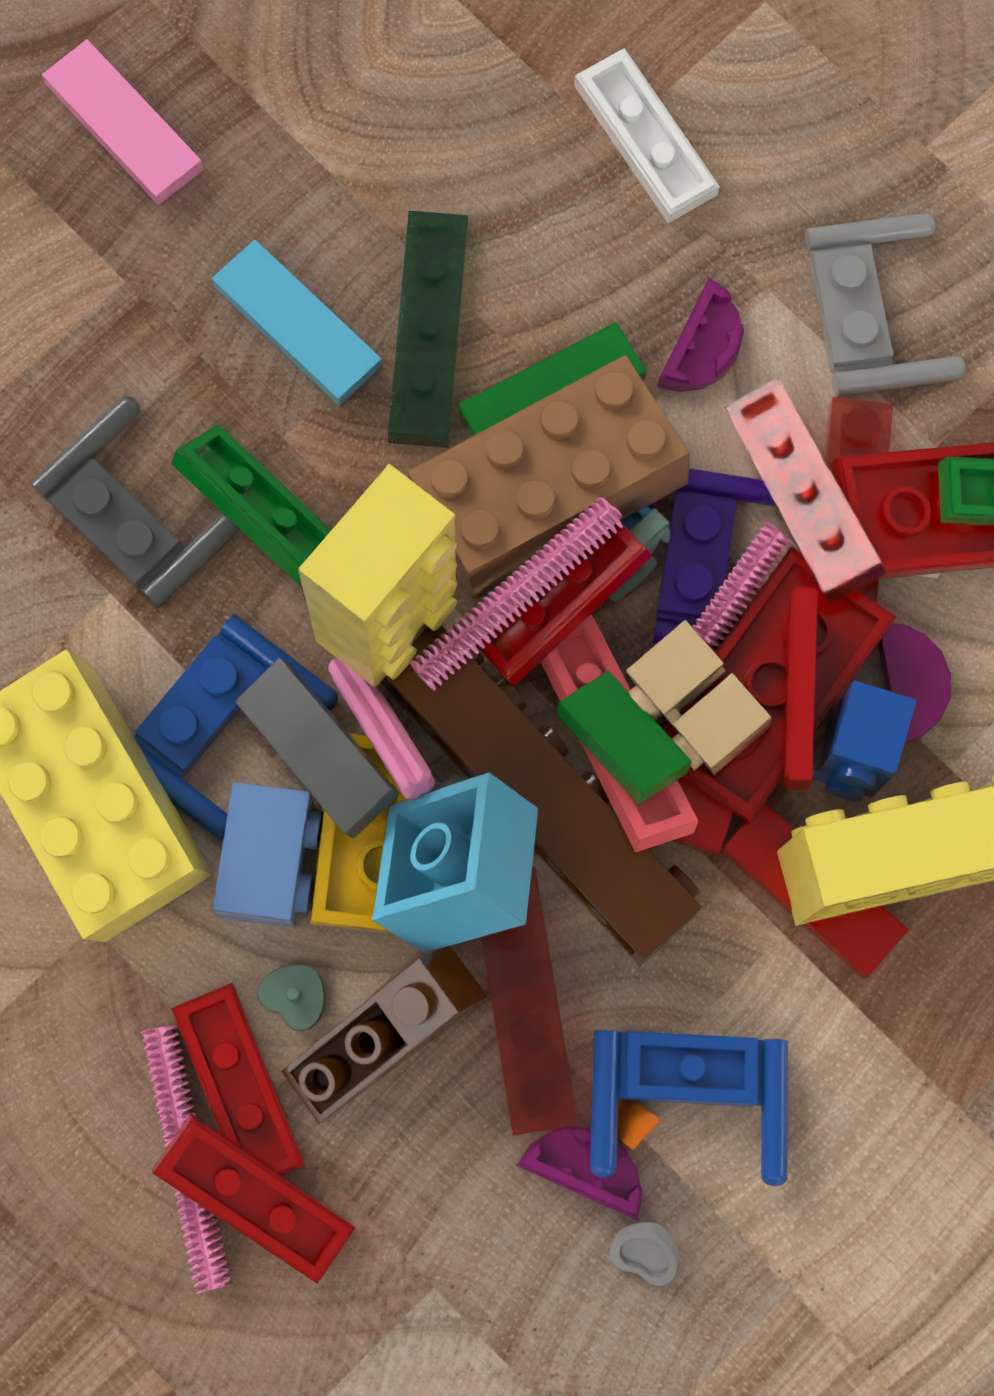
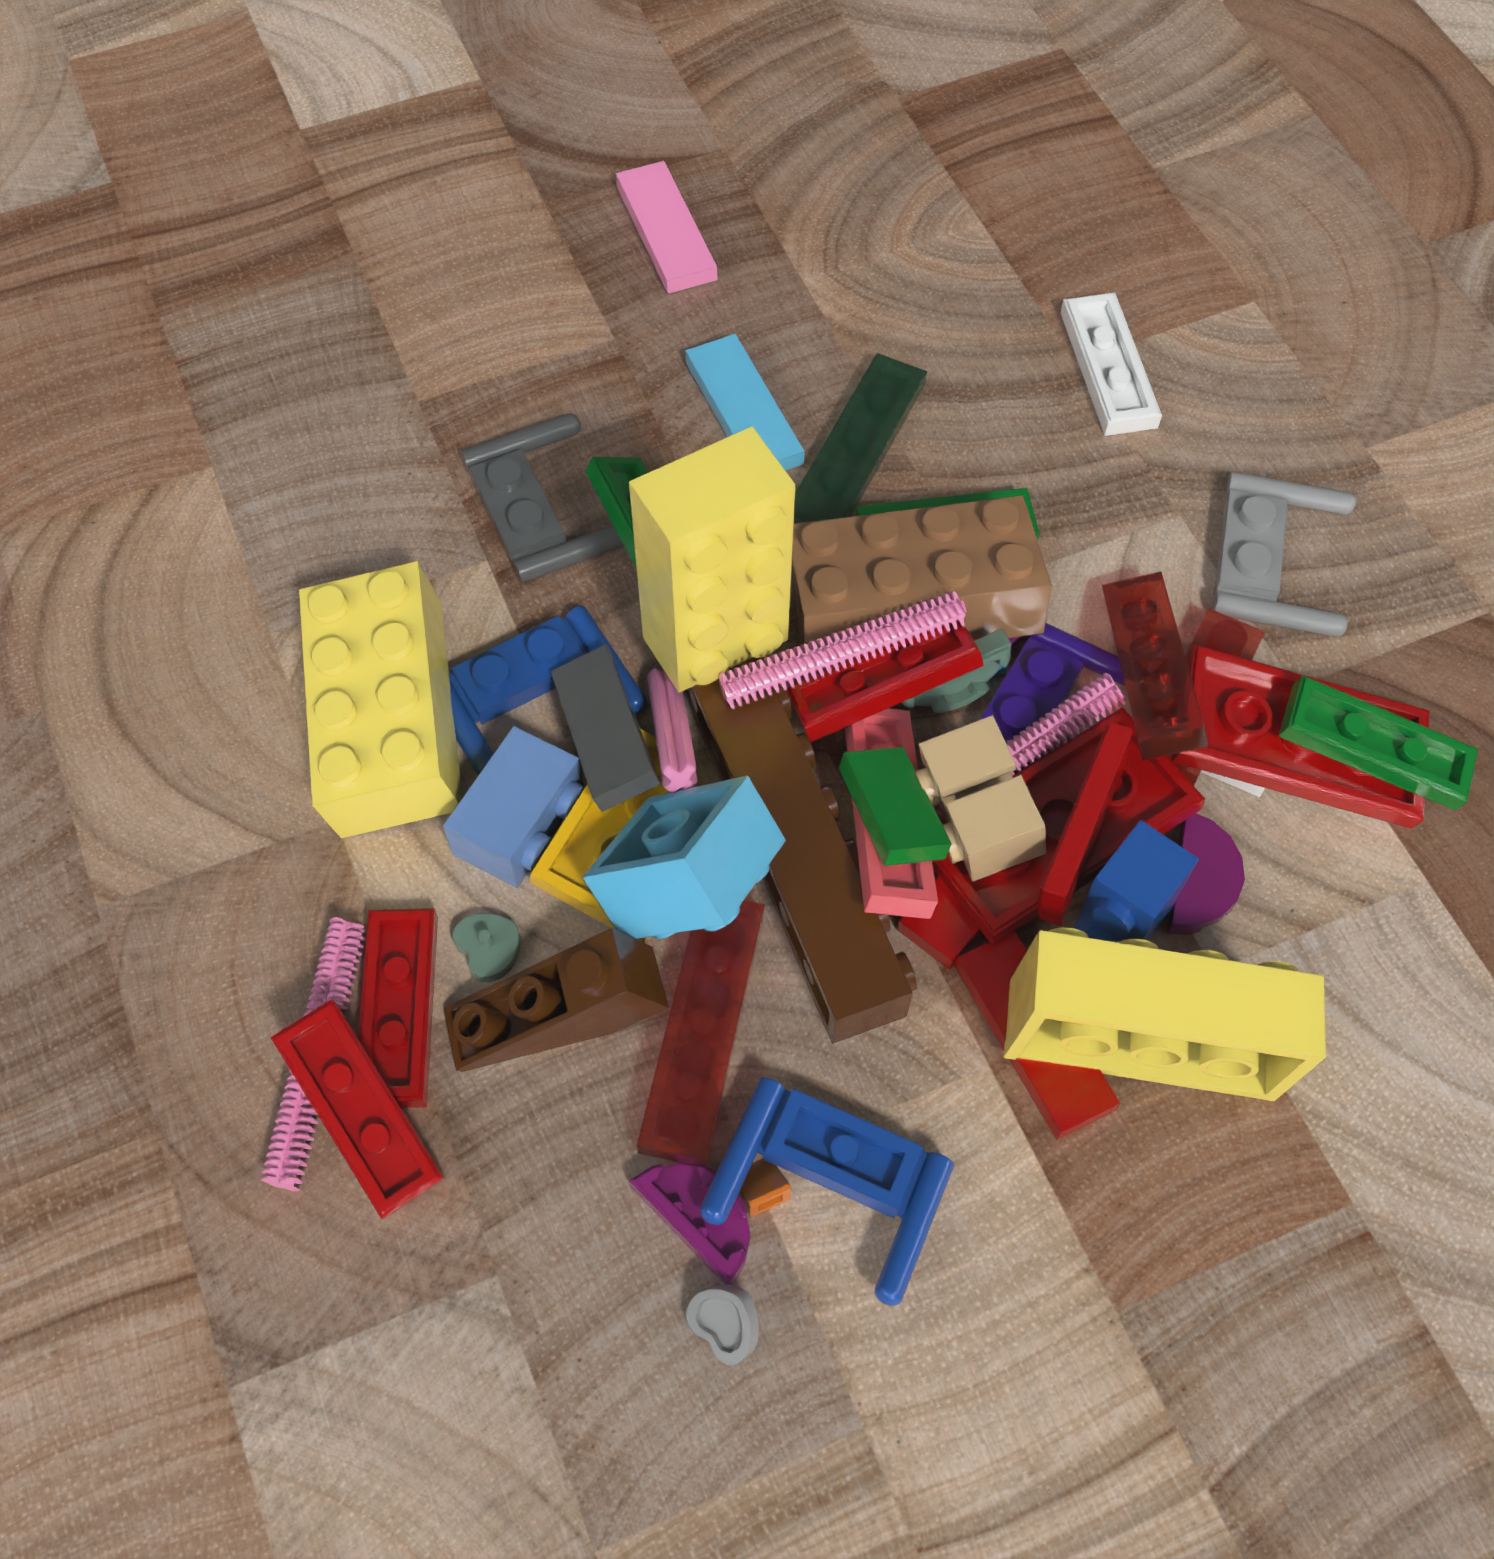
camera: 25 degrees right, 15 degrees down
(706, 344) = (1103, 534): magenta tile -> none

